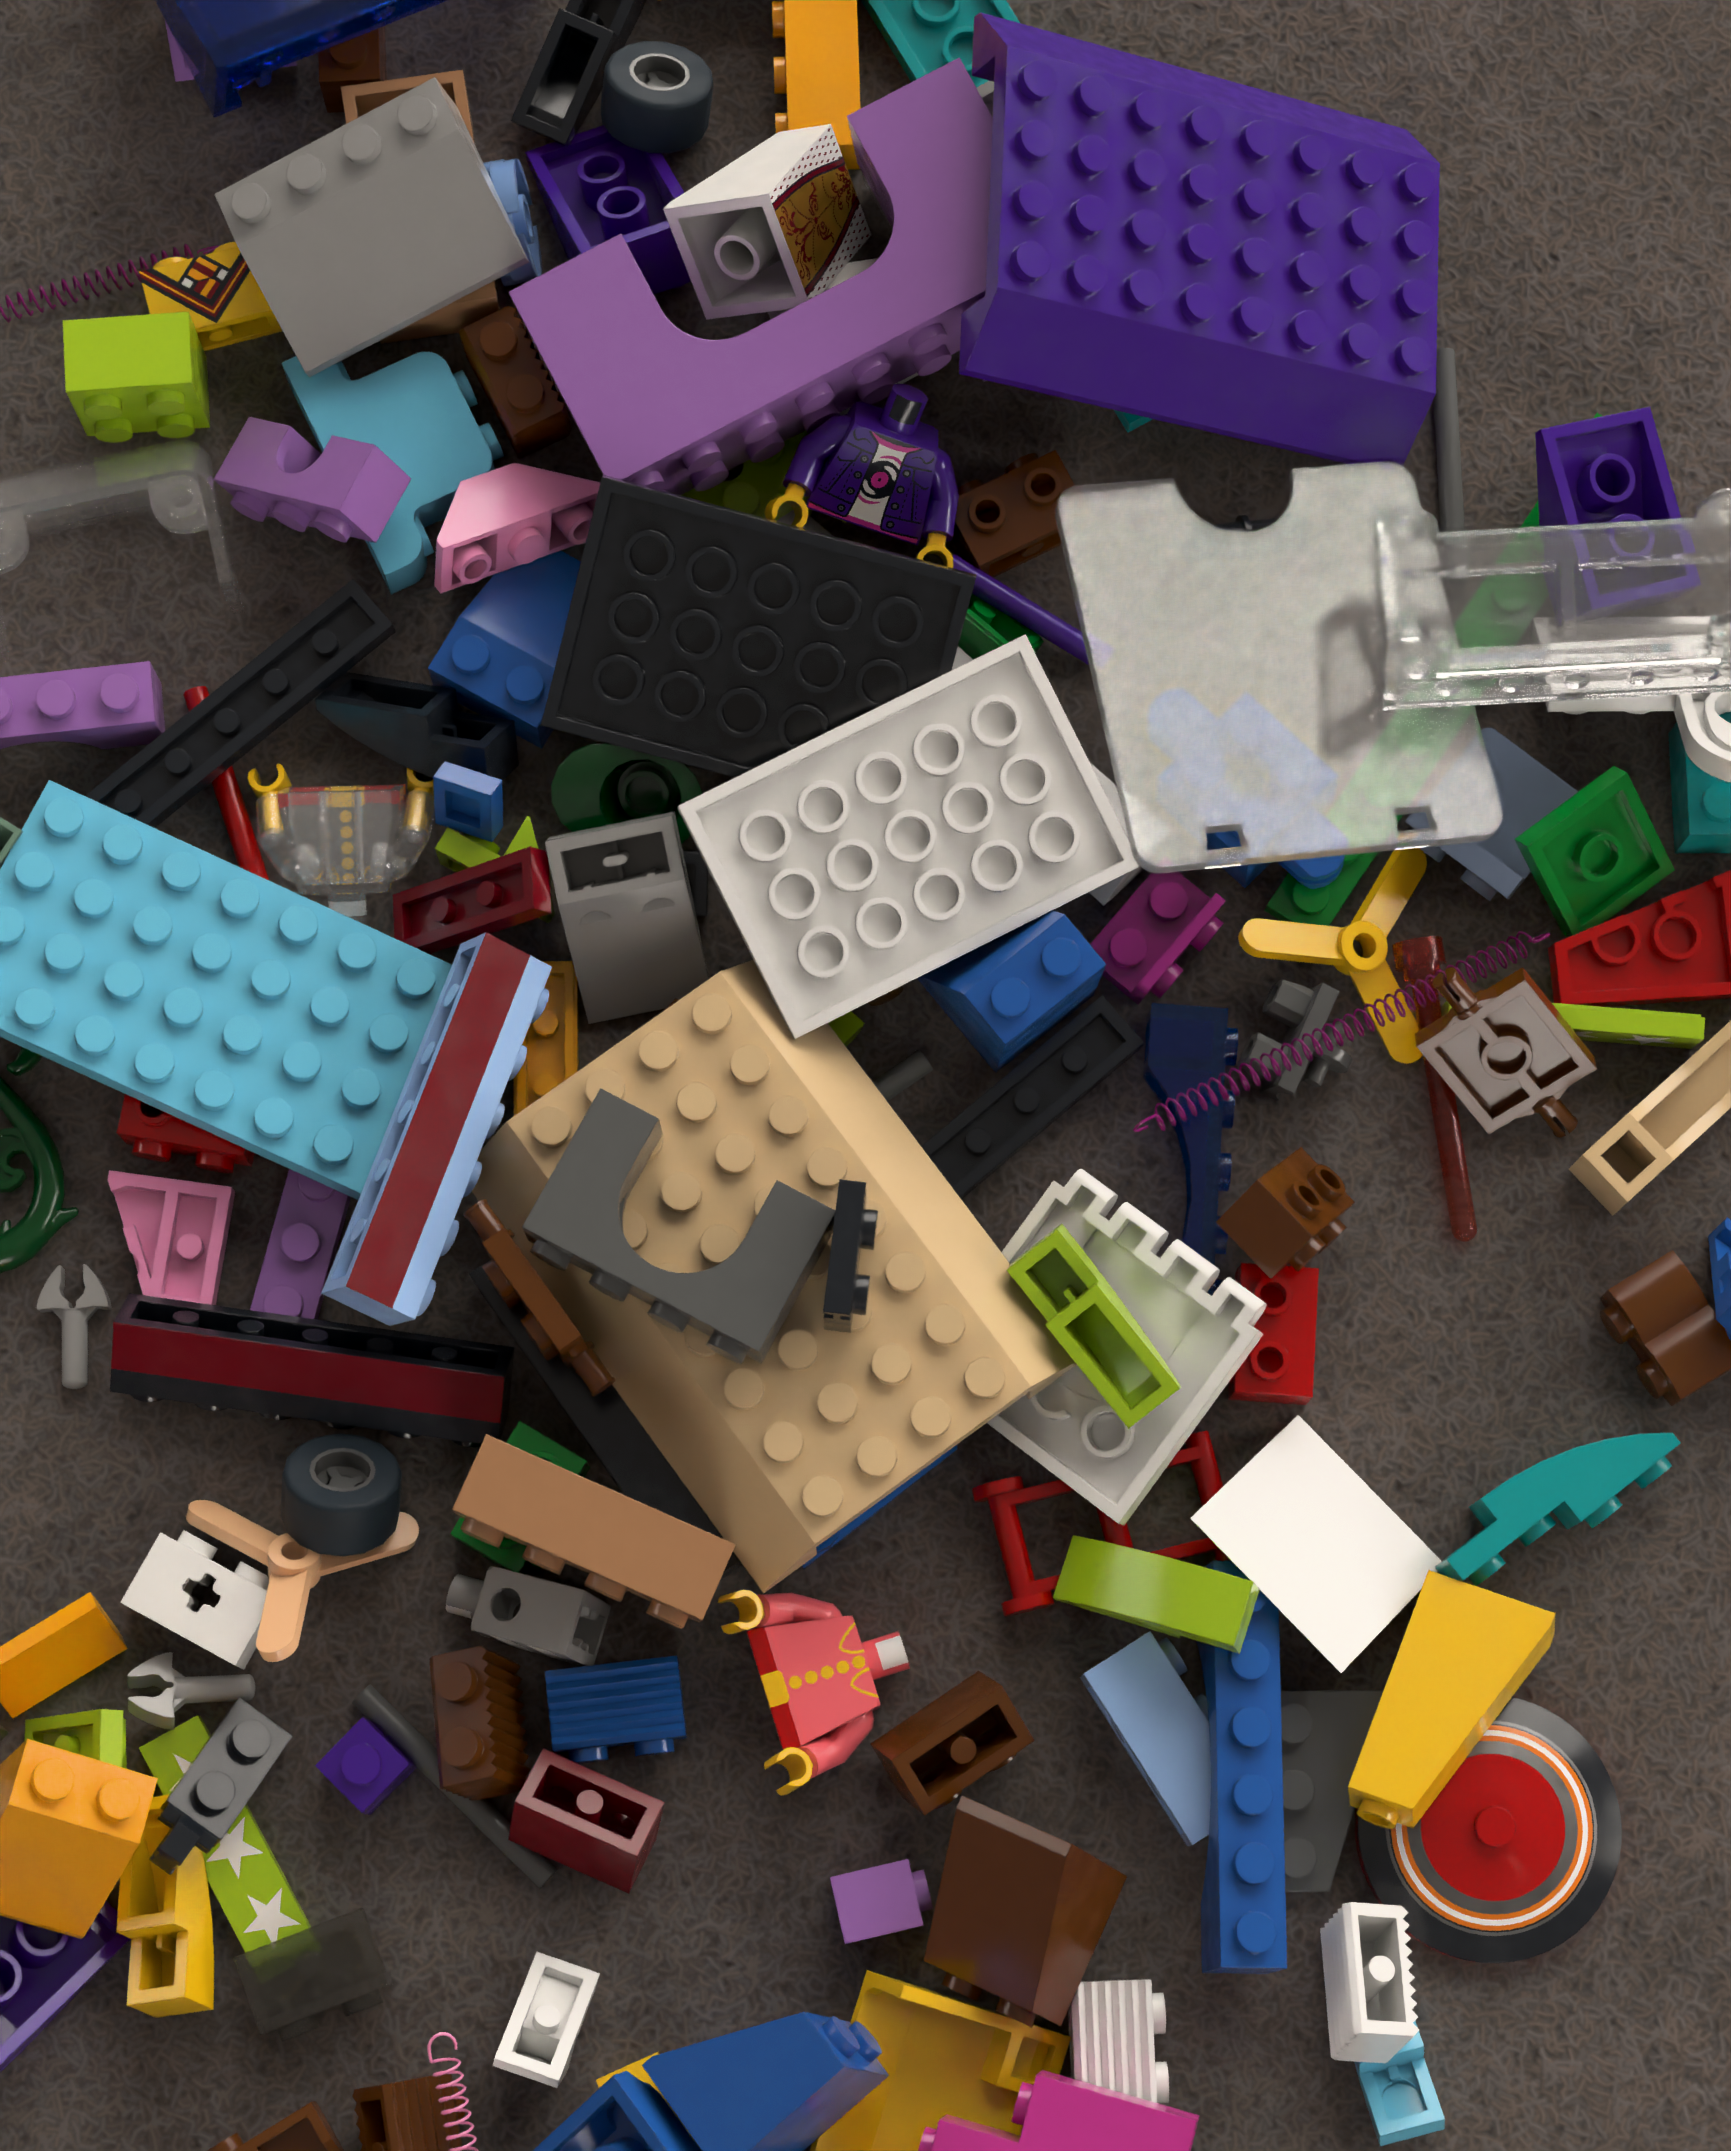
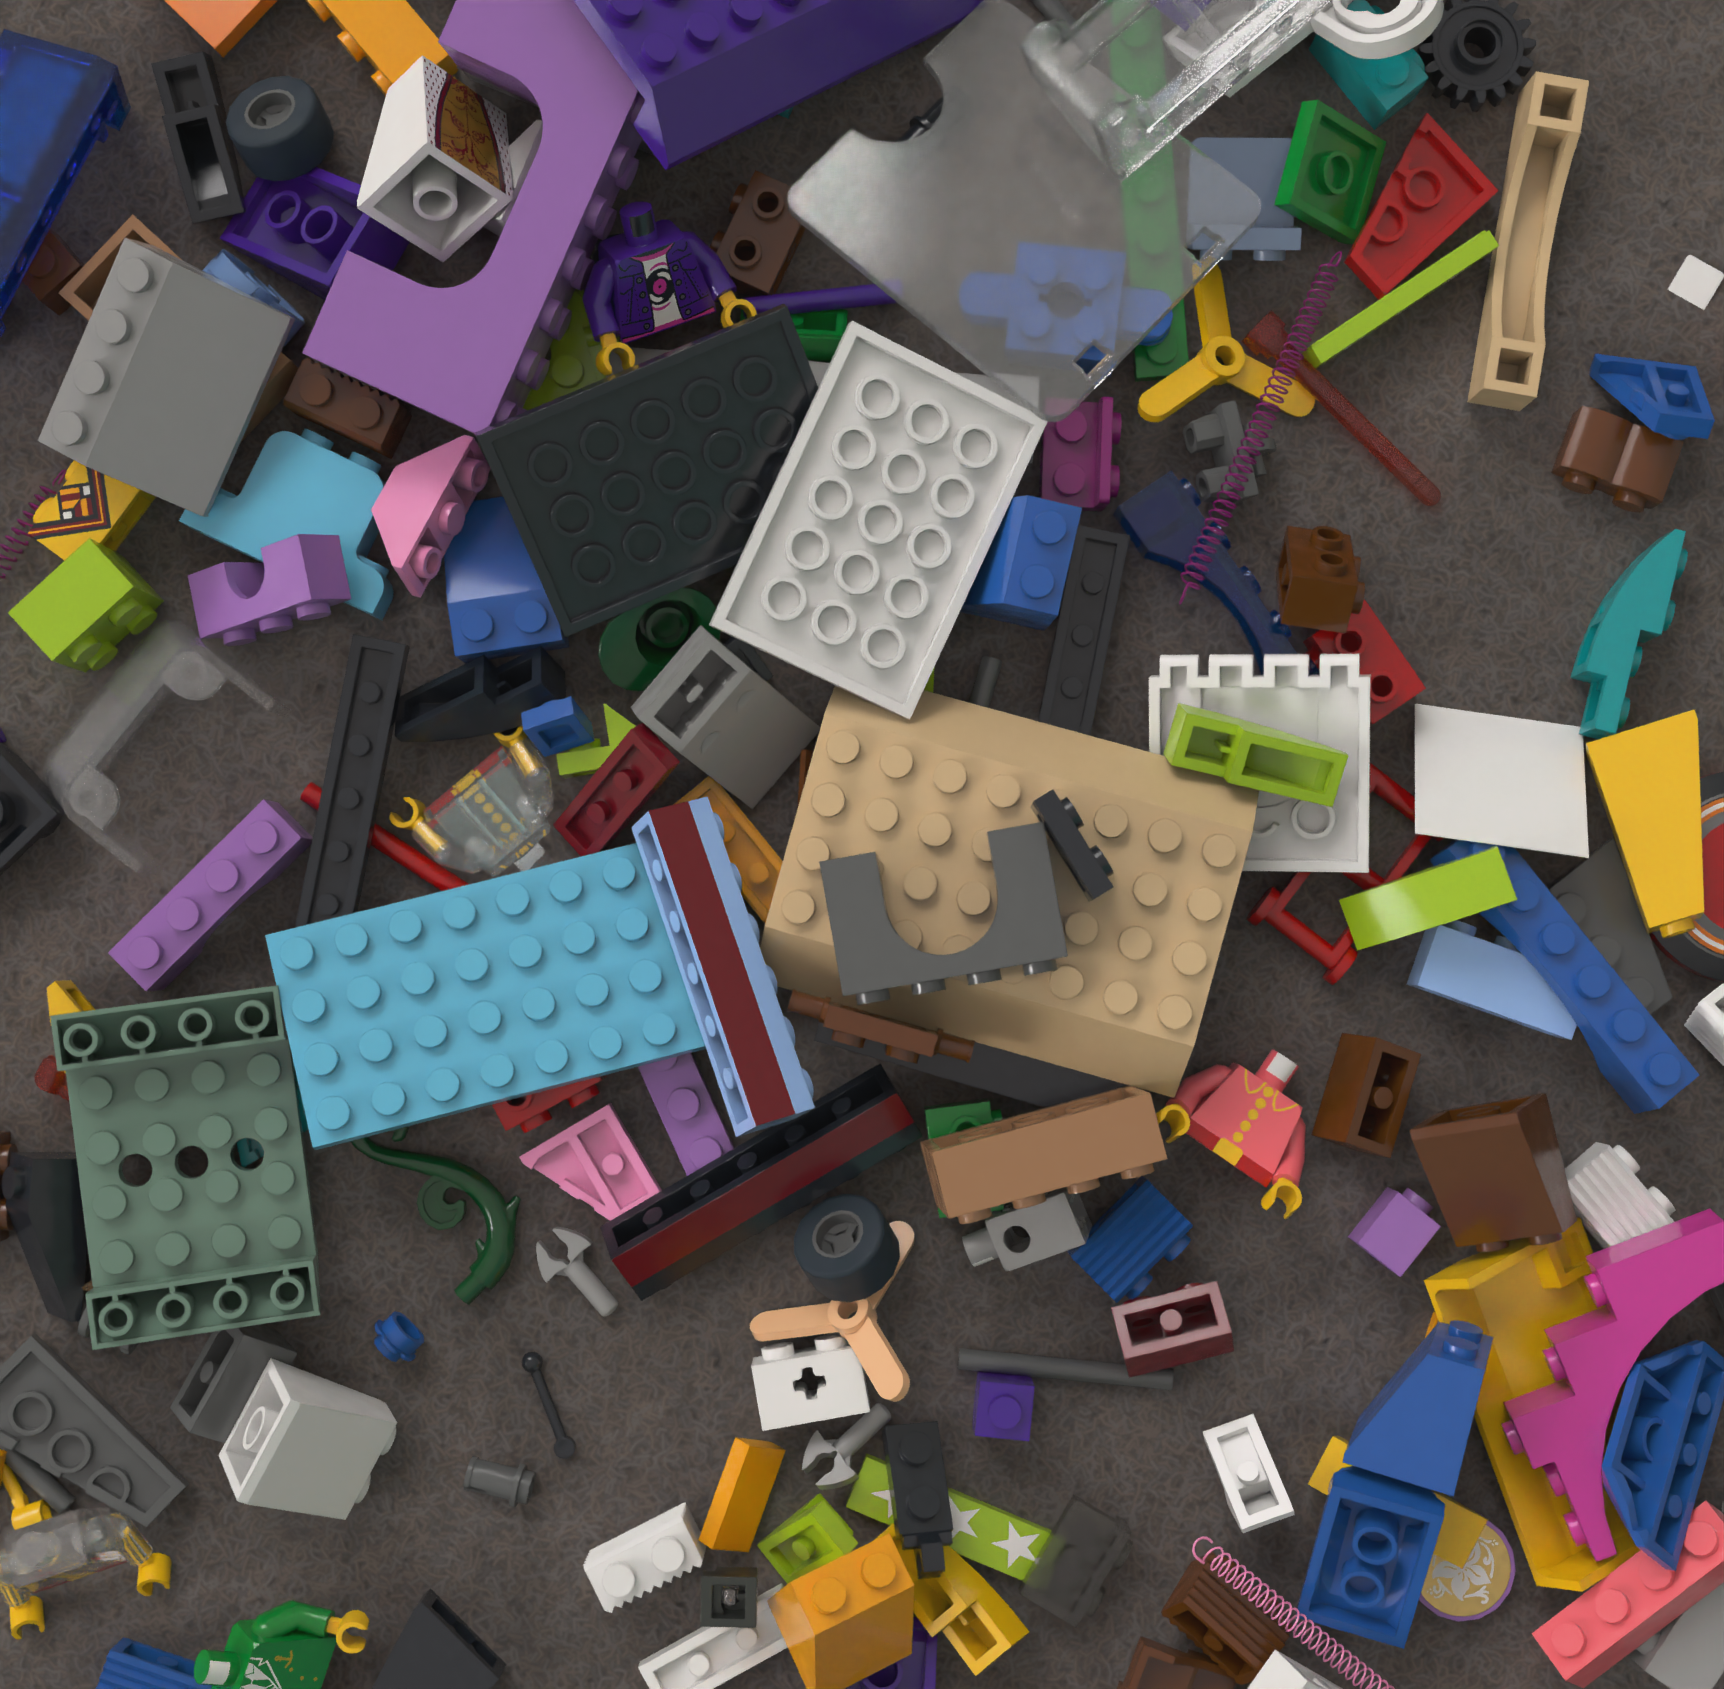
camera: 35 degrees left, 10 degrees up
(478, 1723) = (1054, 1322): reddish brown brick -> none
(1505, 1051) = (1377, 356): plate -> none

